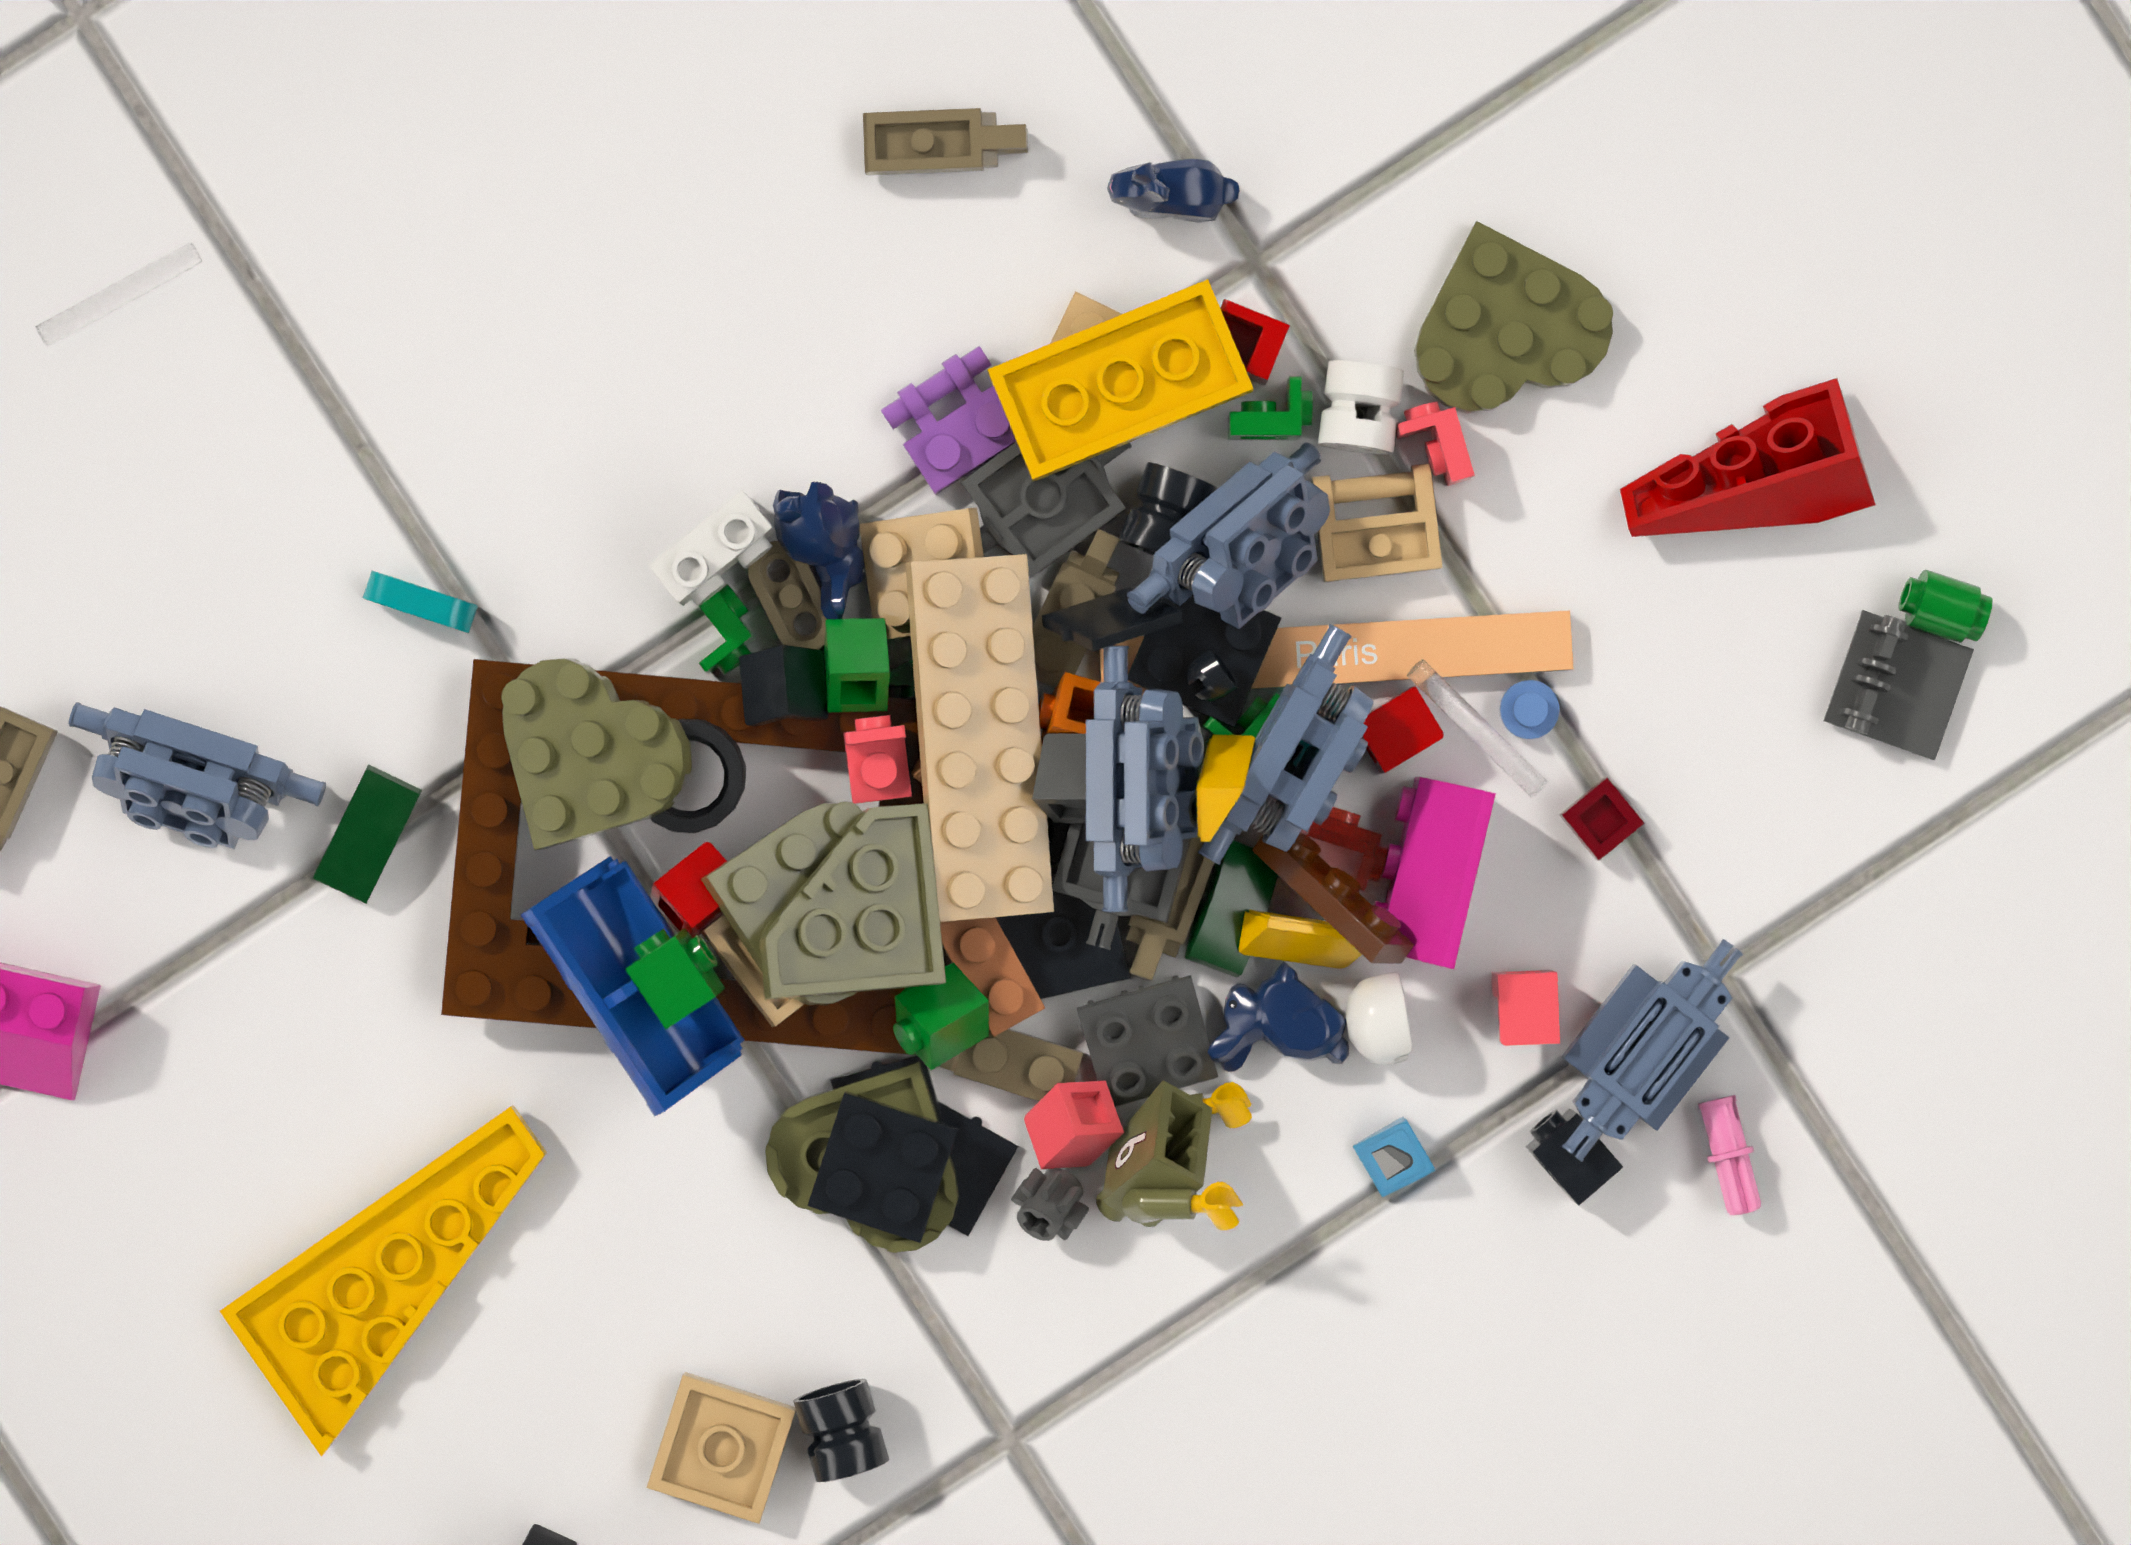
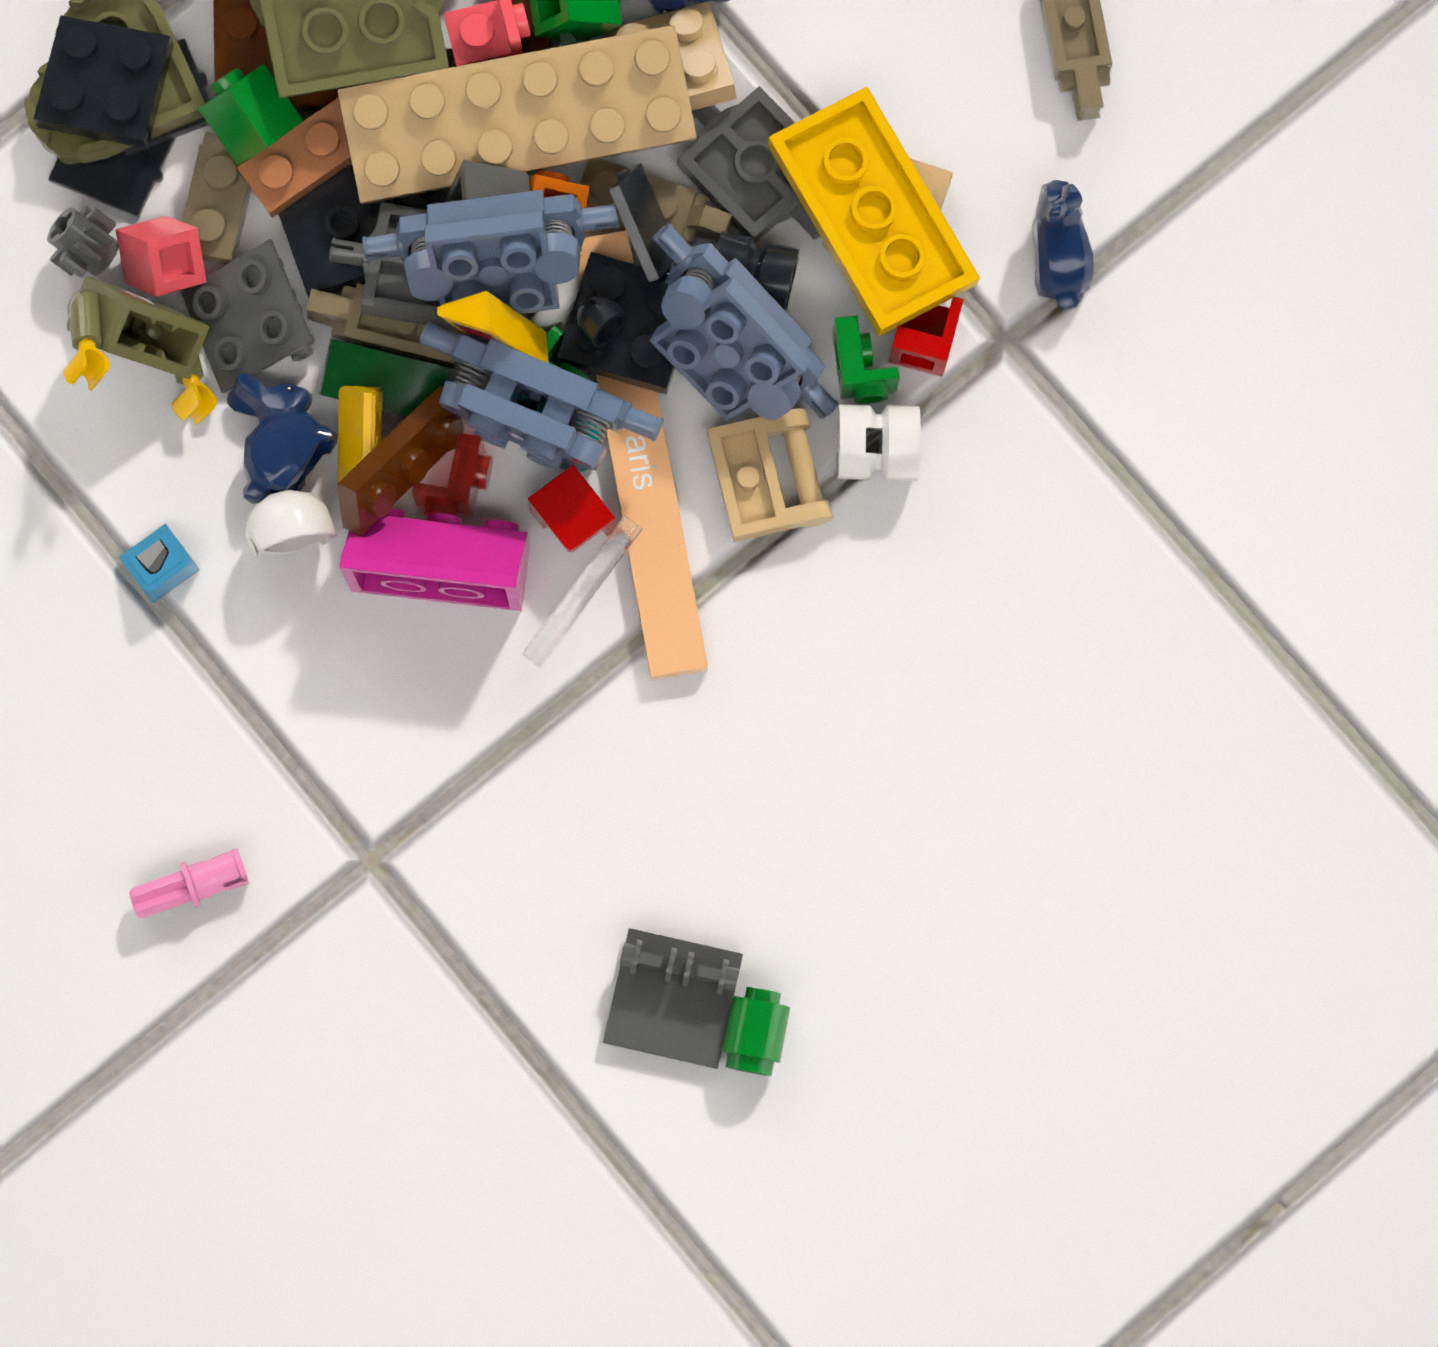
camera: 75 degrees right, 10 degrees down
(963, 438) = (798, 83): medium lavender plate -> none
(1448, 449) = (849, 531): coral bracket -> none
(1509, 322) = (979, 578): olive plate -> none
(1527, 1007) = (315, 666): coral panel -> none
(1529, 709) = (606, 640): medium blue plate -> none
(1574, 1177) = (175, 728): black brick -> none
(1601, 819) = (507, 720): dark red plate -> none
(1648, 1047) = (283, 784): sand blue piece -> none
(1777, 471) = (866, 850): red wedge -> none

